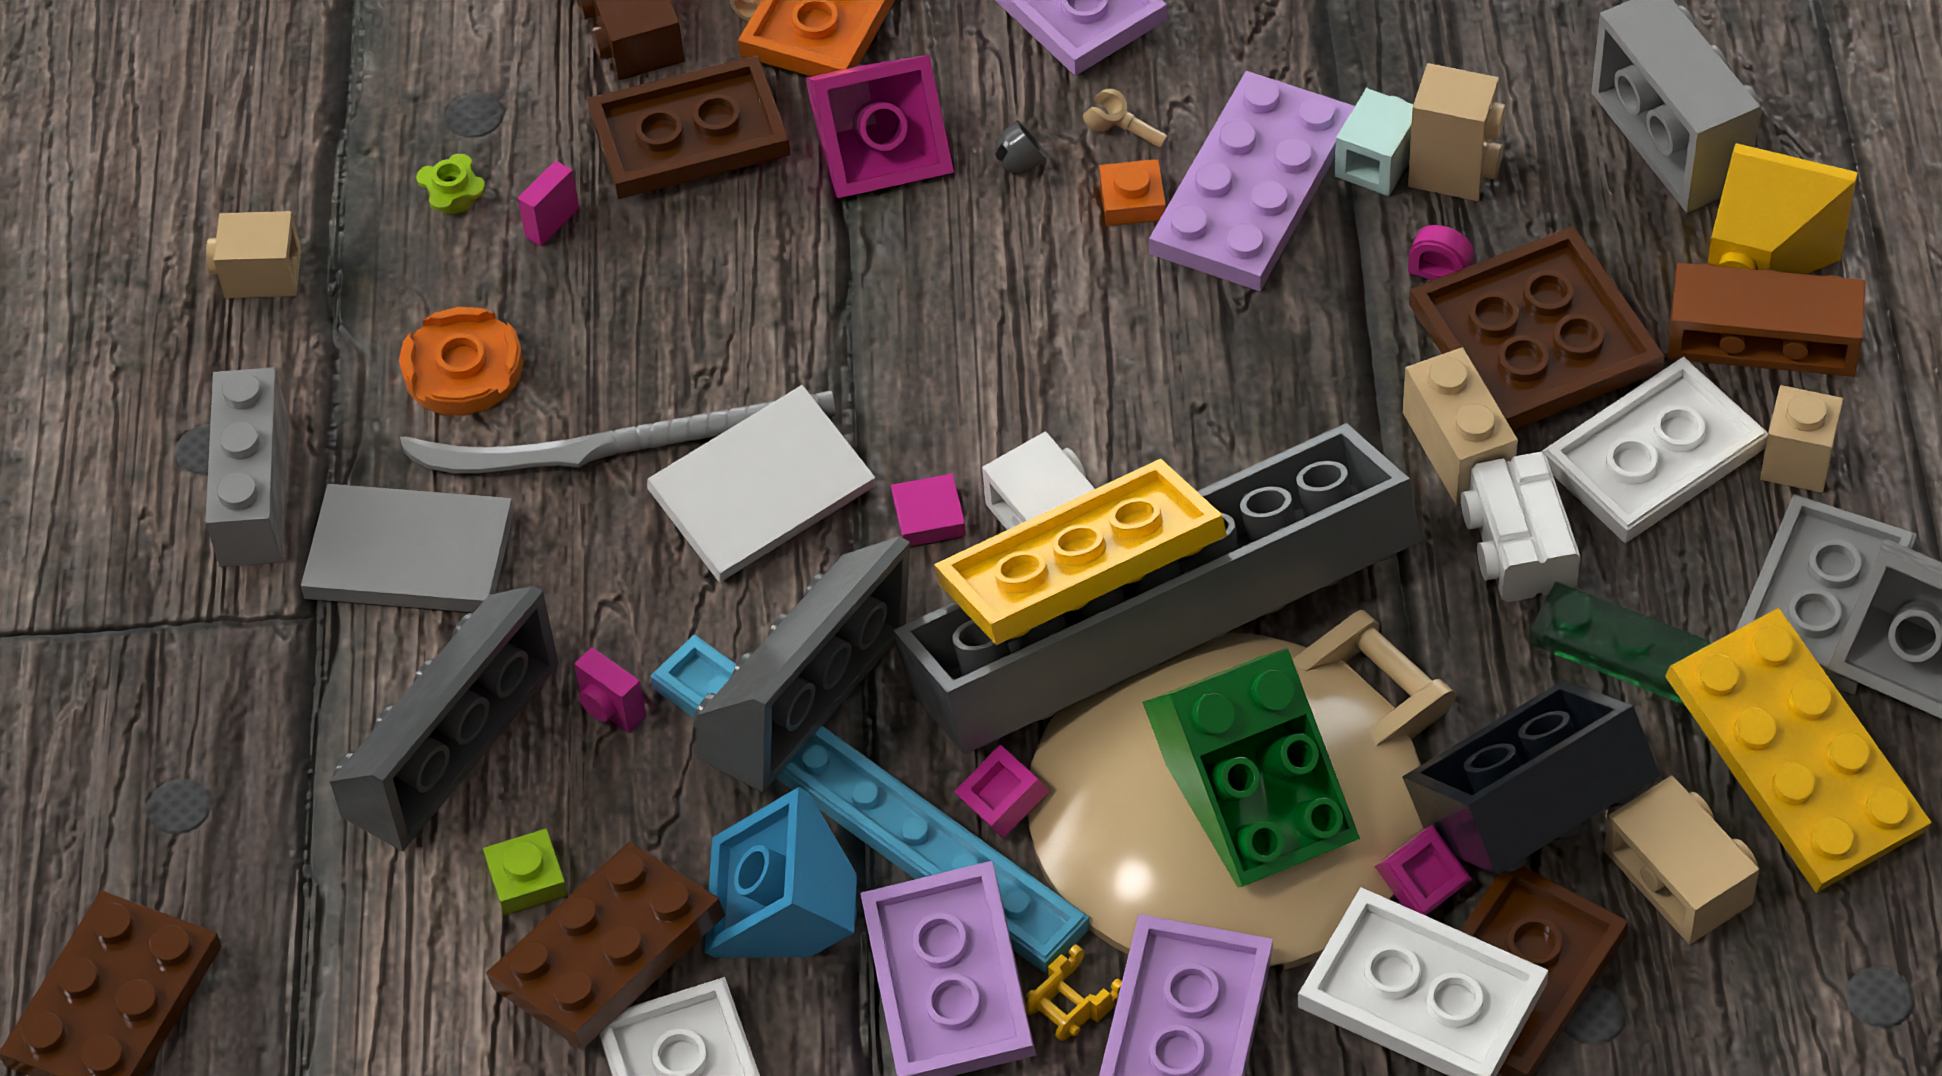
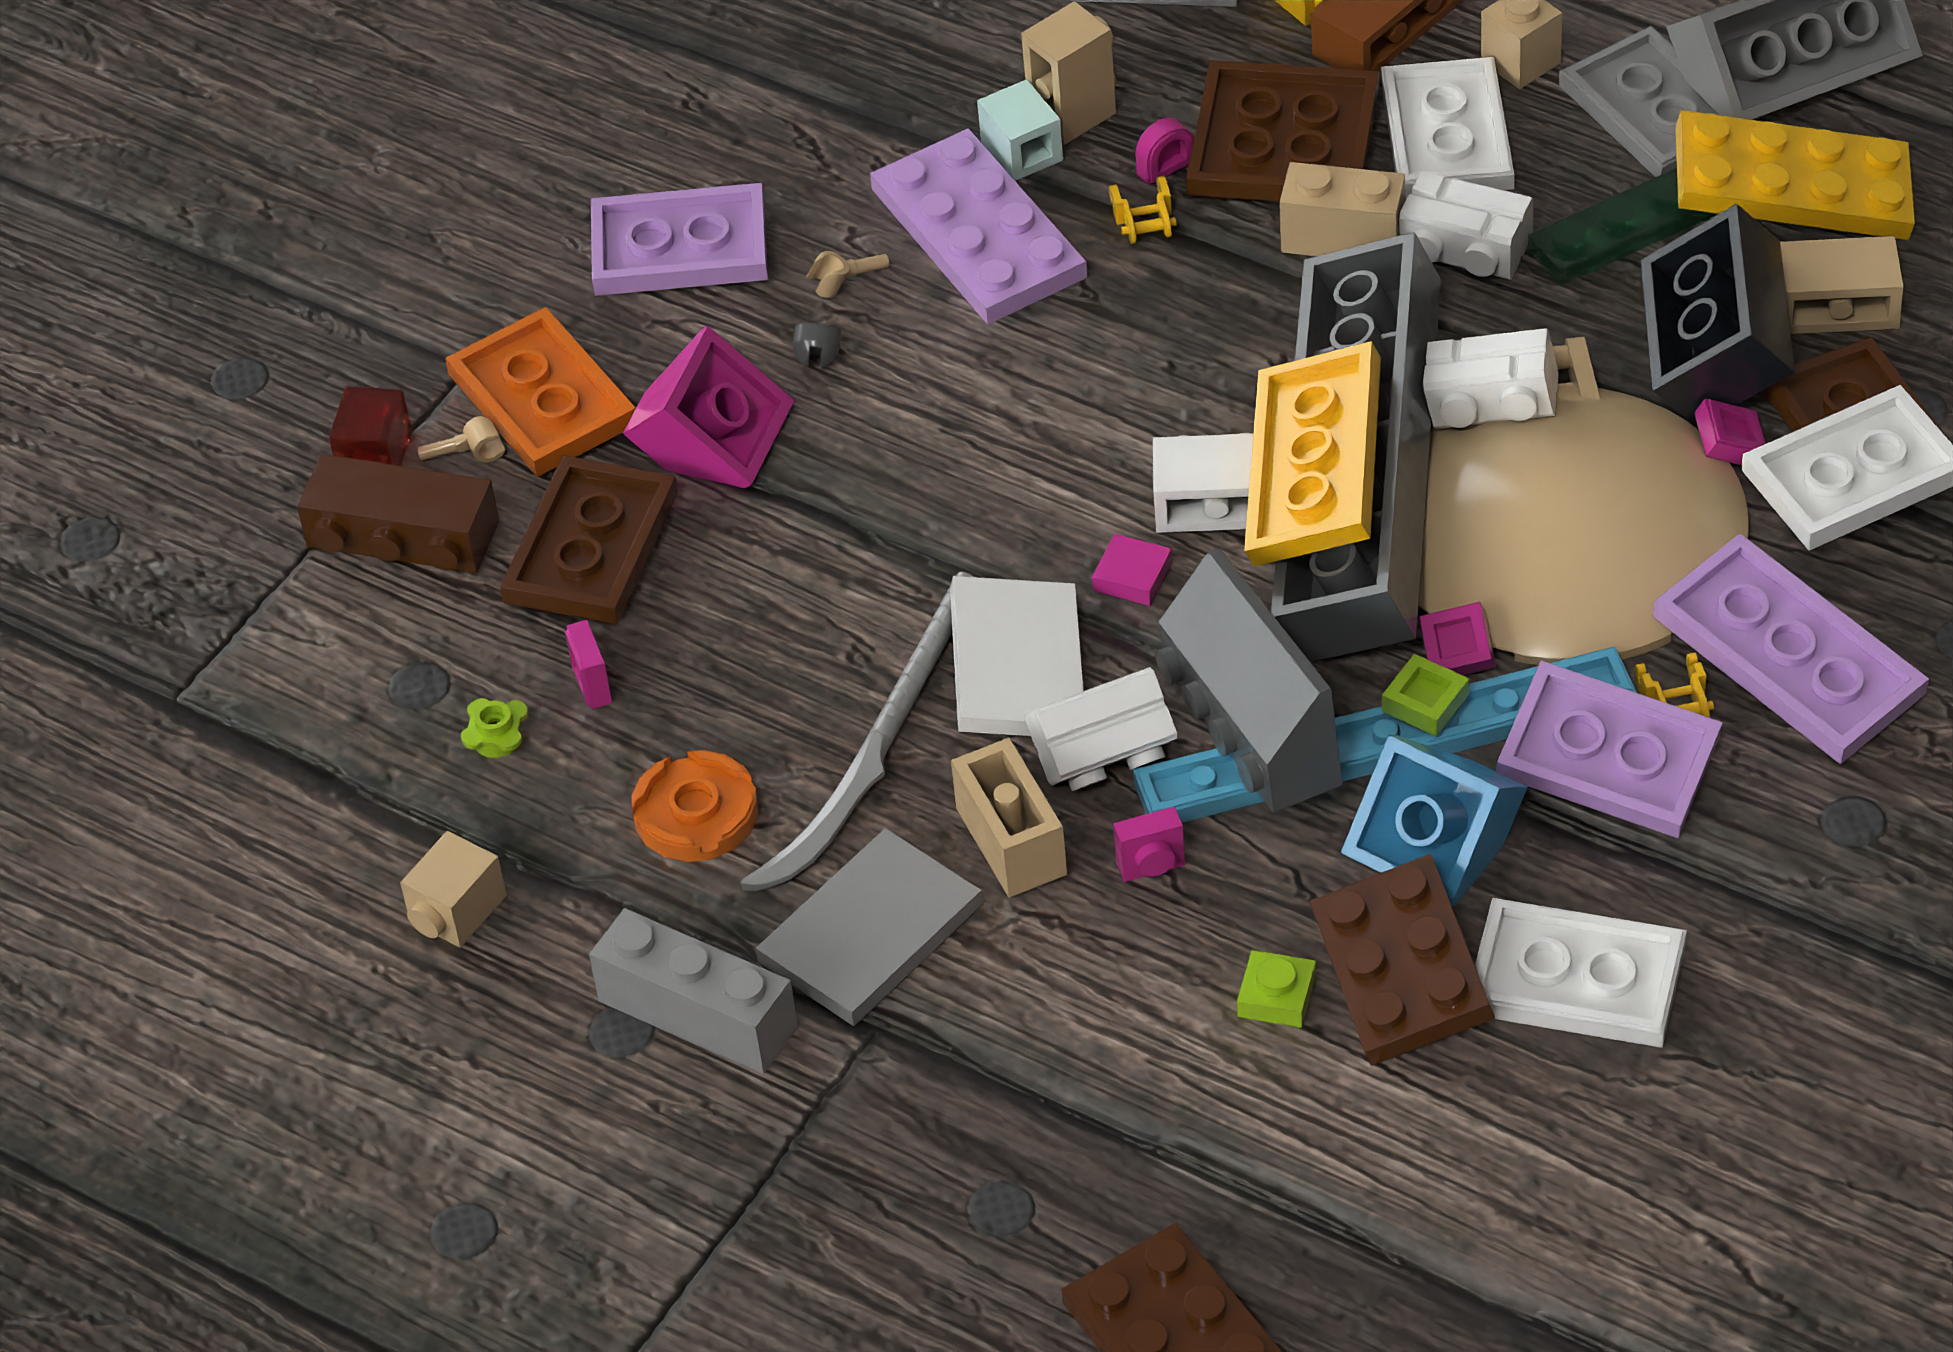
camera: 55 degrees left, 5 degrees down
(447, 717) = (1089, 956): dark grey slope -> none
(569, 559) = (1009, 817): none -> tan brick
(707, 583) = (1102, 728): none -> white brick
(903, 797) = (1425, 694): none -> lime plate
(1132, 192) = (922, 301): orange plate -> none
(1253, 766) = (1589, 451): green slope -> none
(1323, 642) = (1490, 379): none -> white brick
(1379, 294) = (1124, 214): none -> yellow piece

